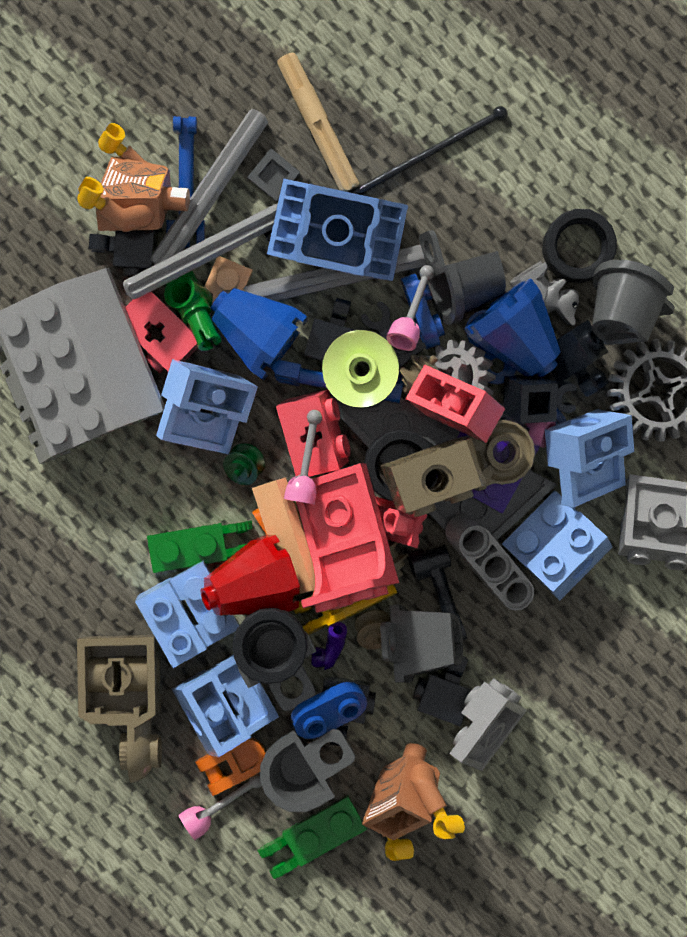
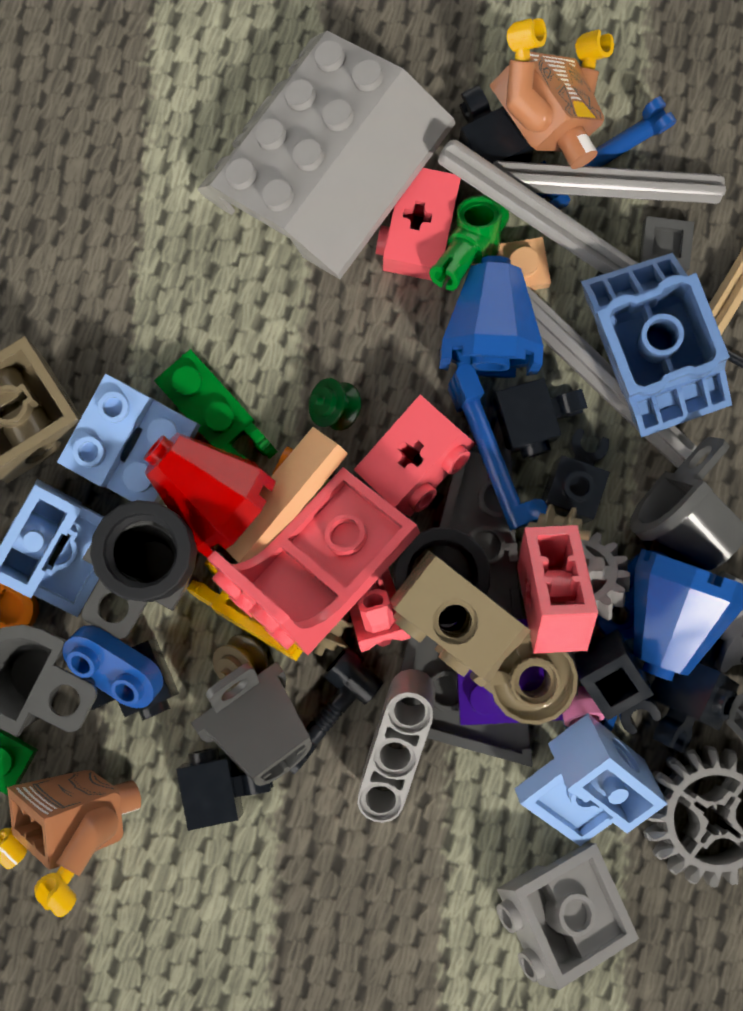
camera: 55 degrees right, 5 degrees down
(197, 388) = (387, 296): light blue brick -> none
(302, 487) = (348, 477): hinge -> none
(335, 643) = (196, 629): dark purple arm -> none
(341, 363) = (522, 436): yellowish green dish -> none
(404, 331) = (596, 481): bright pink hinge -> none
(429, 325) = (615, 509): blue plate -> none
(493, 716) = (224, 860): light grey plate -> none
(558, 545) = (464, 812): light blue brick -> none

